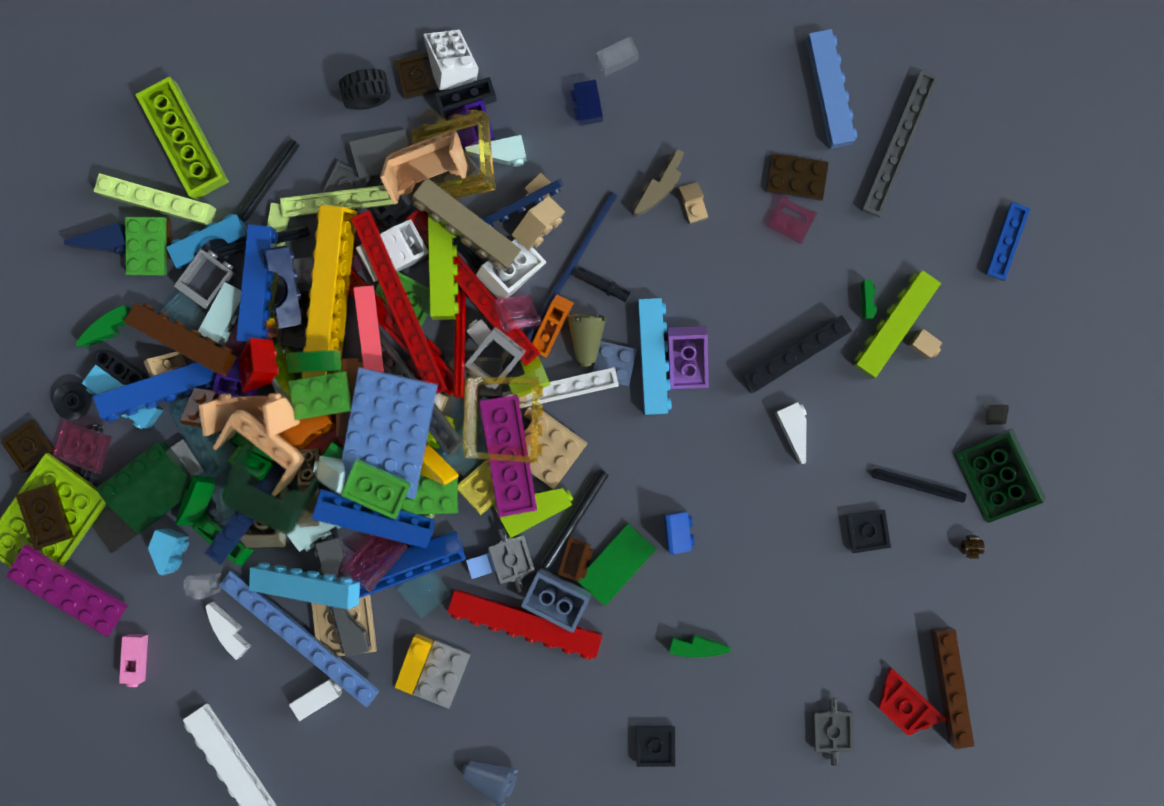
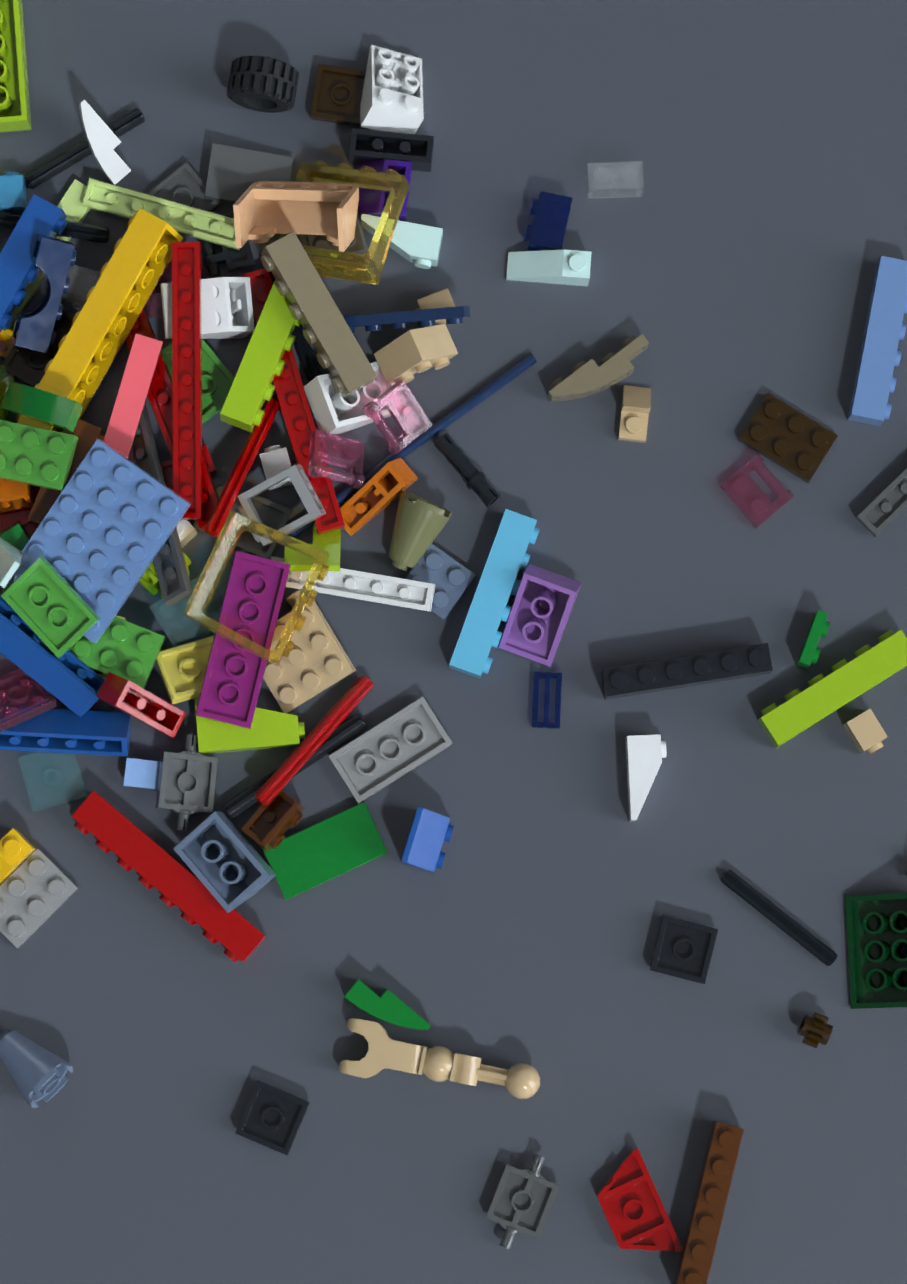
camera: 15 degrees right, 5 degrees down
(278, 172) = (102, 143): none -> white slope
(436, 467) = (141, 616): yellow slope -> none
(461, 524) = (141, 704): none -> red brick
(548, 264) = (404, 411): none -> clear pink plate
(580, 498) = (314, 740): none -> red axle
(600, 130) = (550, 266): none -> light aqua slope
(630, 483) = (390, 750): none -> light grey plate
(722, 407) = (547, 676): none -> clear blue tile
(743, 669) = (435, 1063): none -> tan piece

